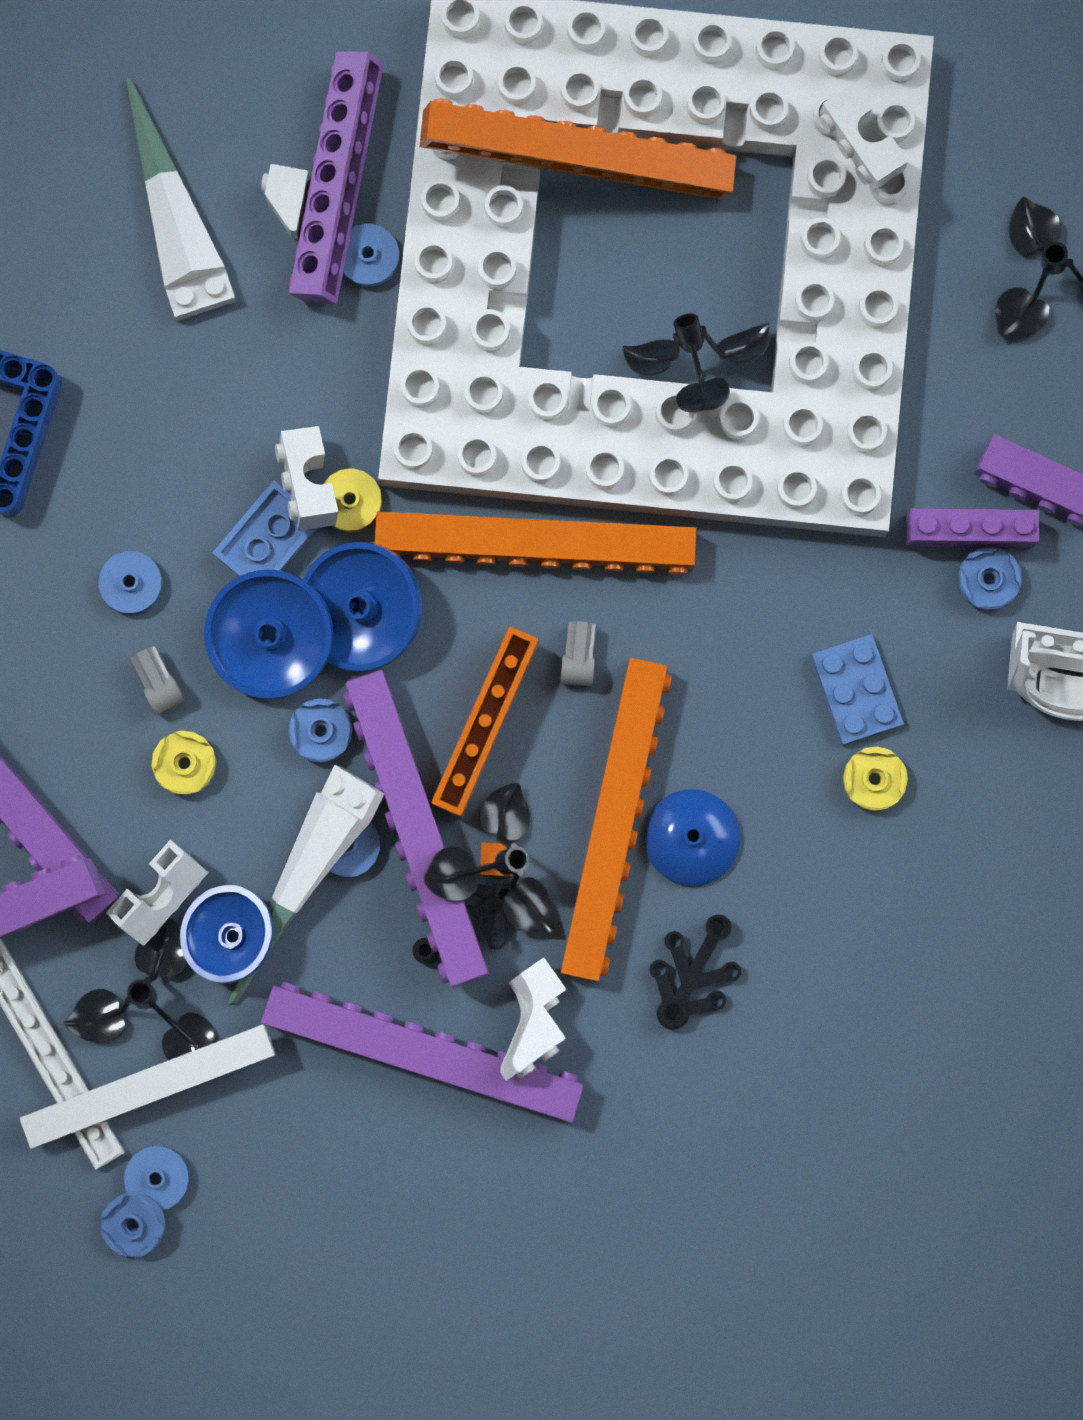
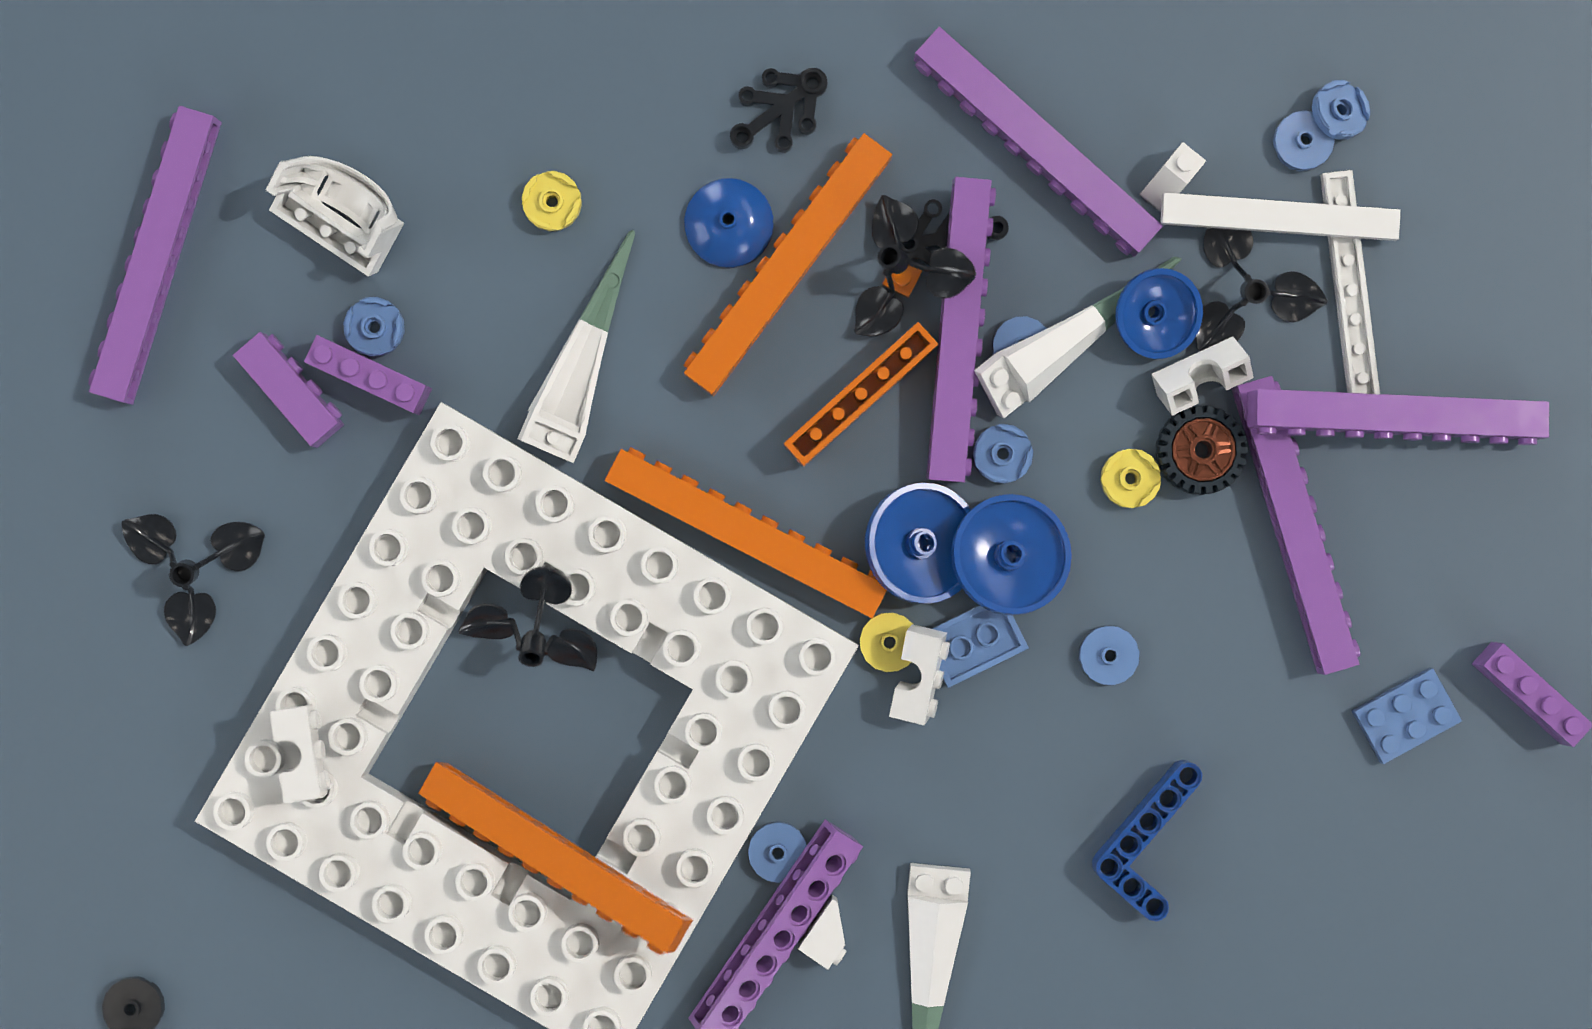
camera: 155 degrees left, 5 degrees up
(101, 815) = (1224, 444): none -> wheel
(159, 686) = (1123, 550): light grey piece -> none
(272, 1080) = (1173, 175): none -> white slope
(536, 1031) = (936, 112): white arch -> none
(579, 660) = (756, 414): light grey piece -> none
(770, 586) = (563, 403): none -> white plate
(857, 689) = (531, 284): medium blue plate -> none

